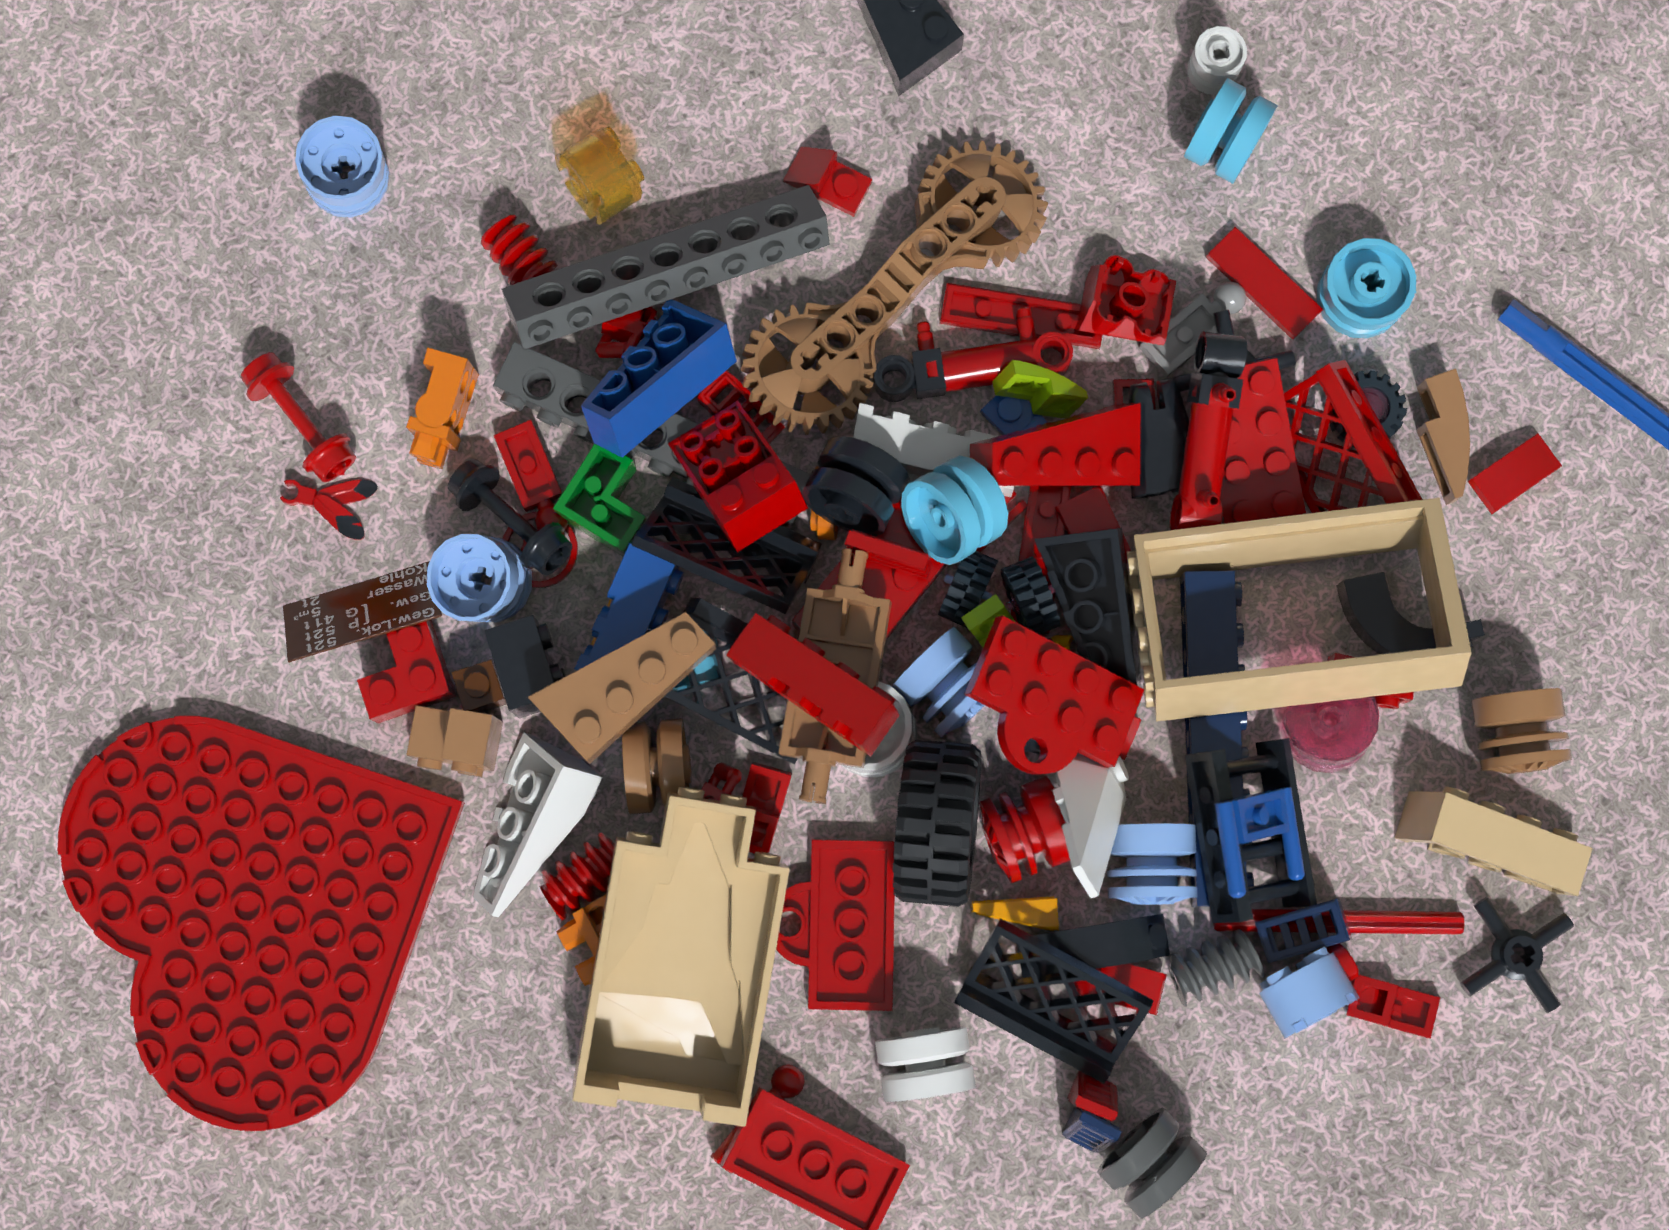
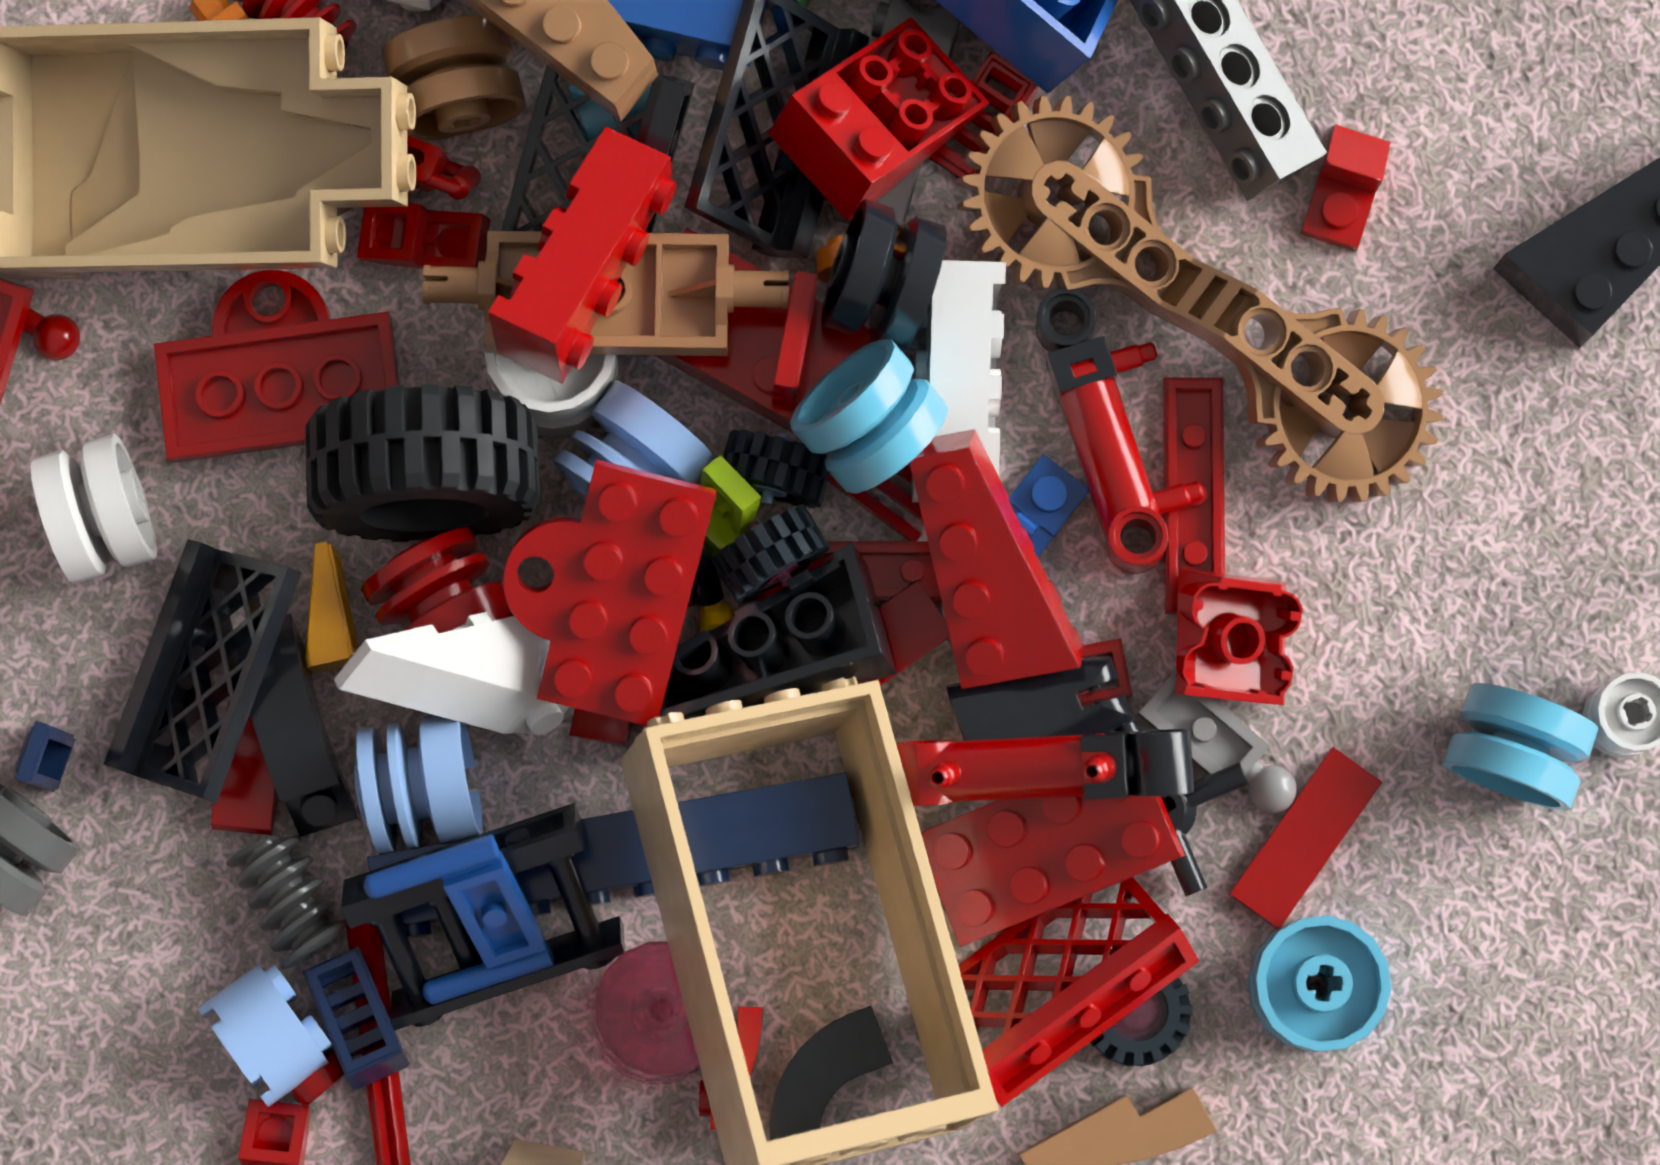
camera: 85 degrees right, 0 degrees up
(1047, 390) = (1082, 542): lime slope -> none
(1094, 1096) = (78, 751): red slope -> none

